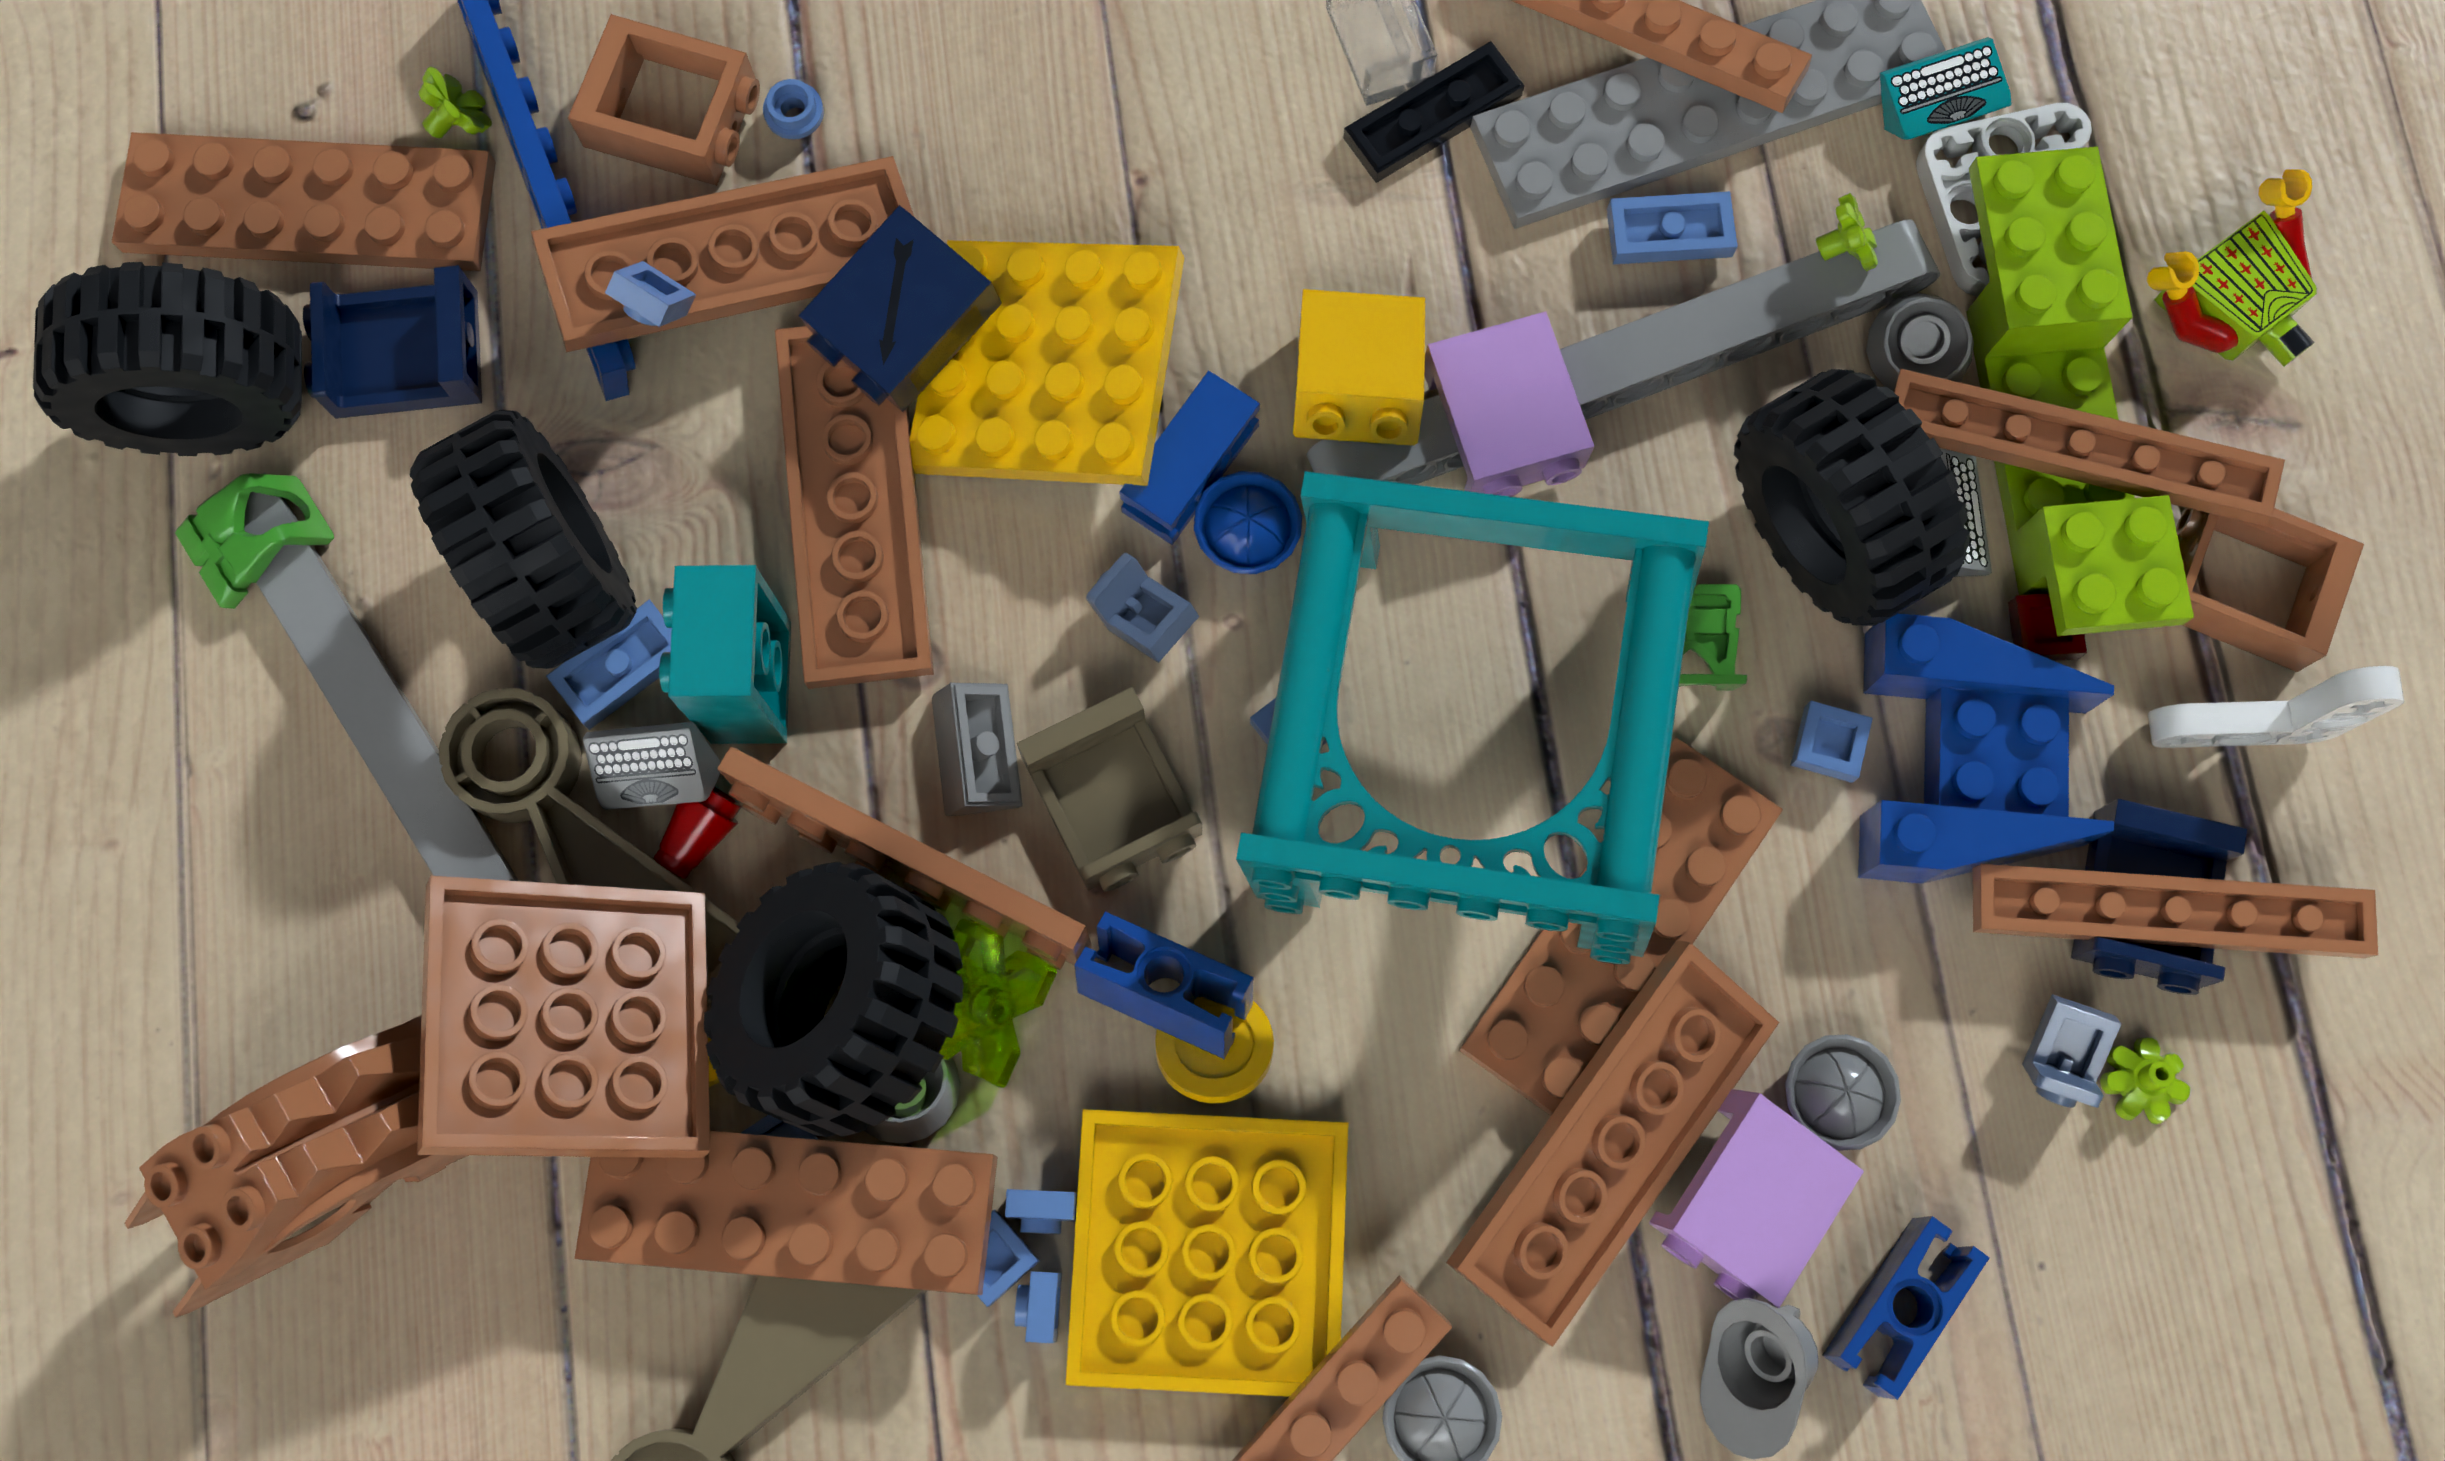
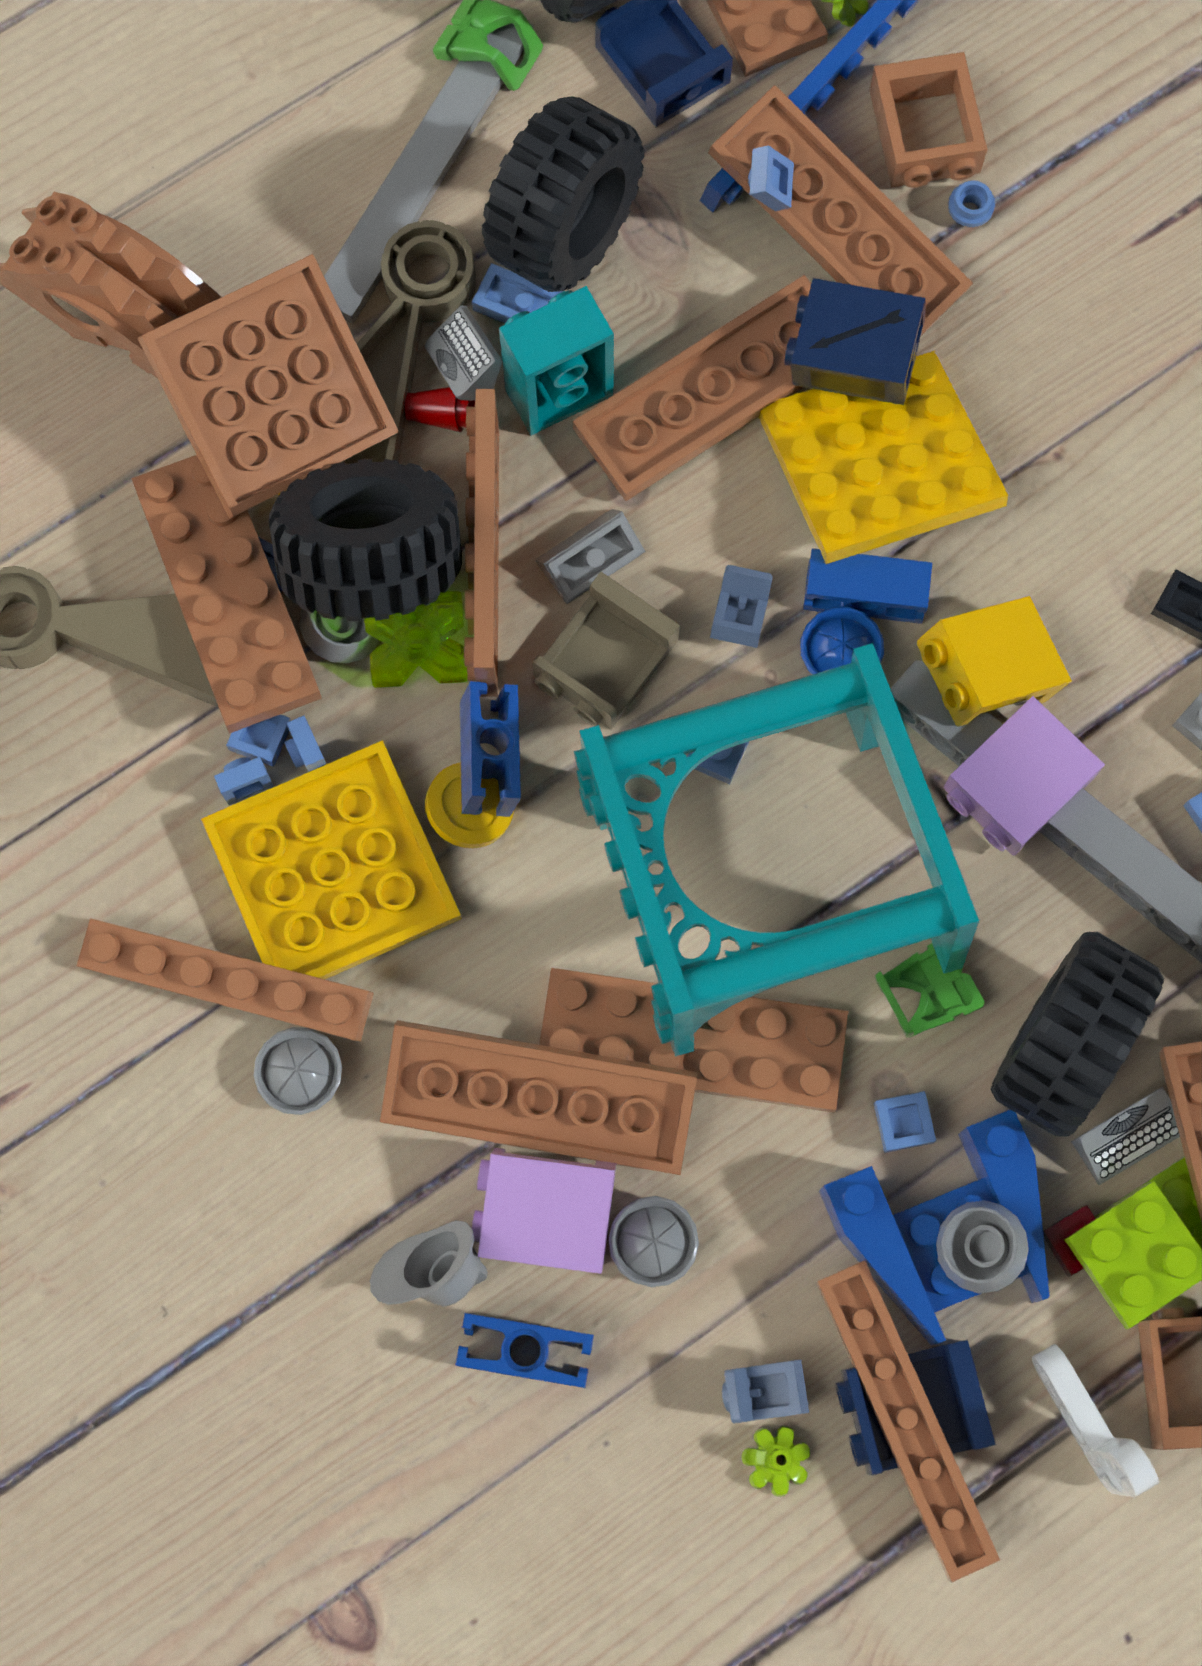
camera: 65 degrees right, 0 degrees up
(2027, 727) = (982, 1246): none -> light grey hat

